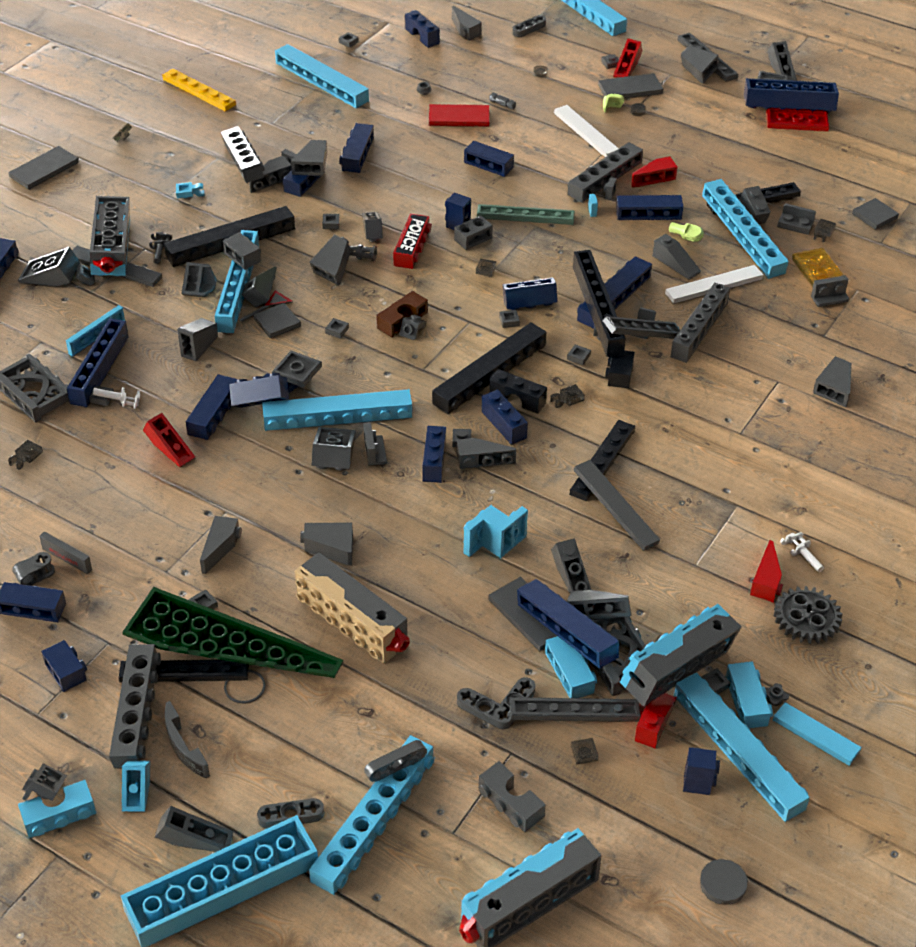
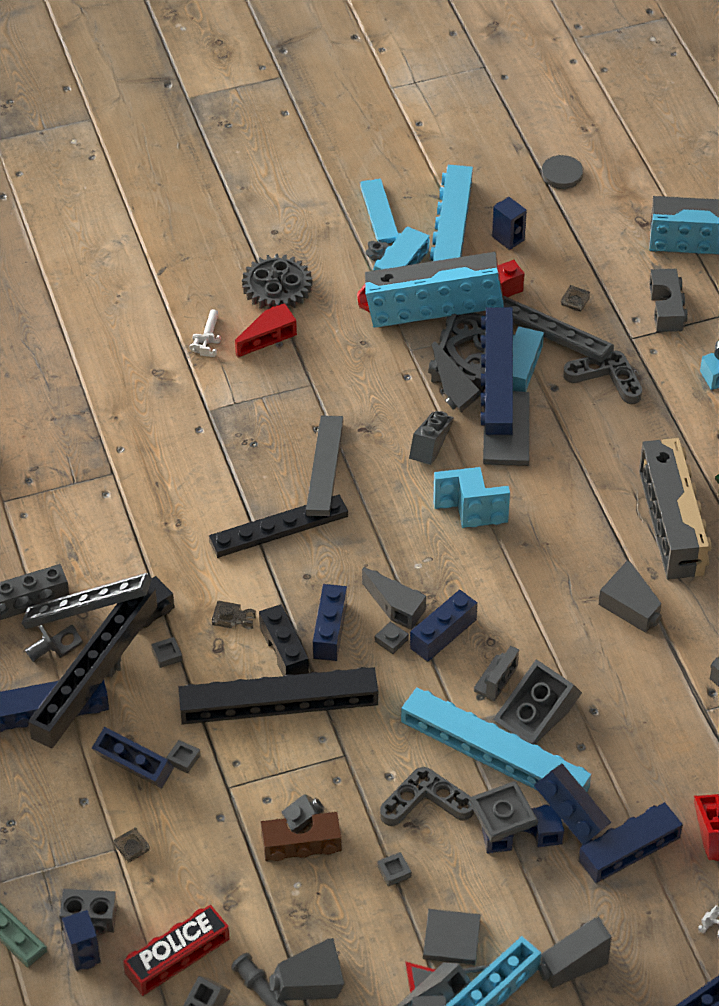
camera: 140 degrees left, 5 degrees up
(357, 375) = (427, 790): none -> dark grey beam

